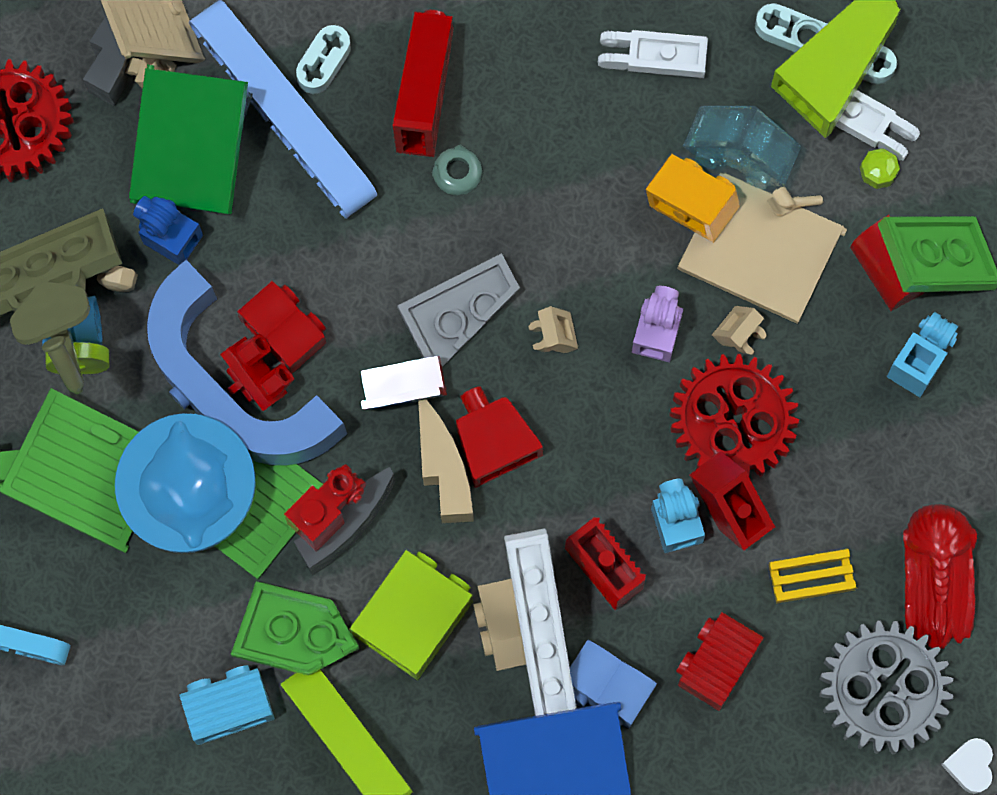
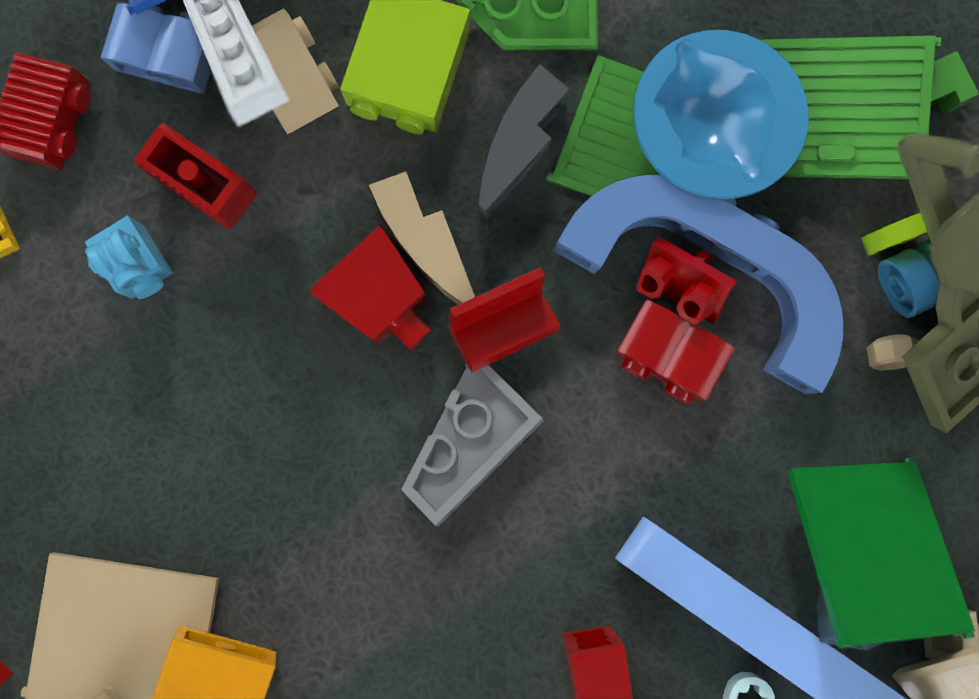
camera: 160 degrees right, 10 degrees up
(166, 228) = (861, 428): blue brick -> none
(317, 512) = (543, 120): red brick -> none
(457, 186) = (533, 602): sand green piece -> none
(556, 331) = (340, 449): tan tile -> none
(658, 325) = (212, 492): lavender brick -> none
(732, 500) = (60, 292): red brick -> none
(738, 327) = (117, 521): tan tile -> none
(766, 404) = (64, 436): red gear -> none

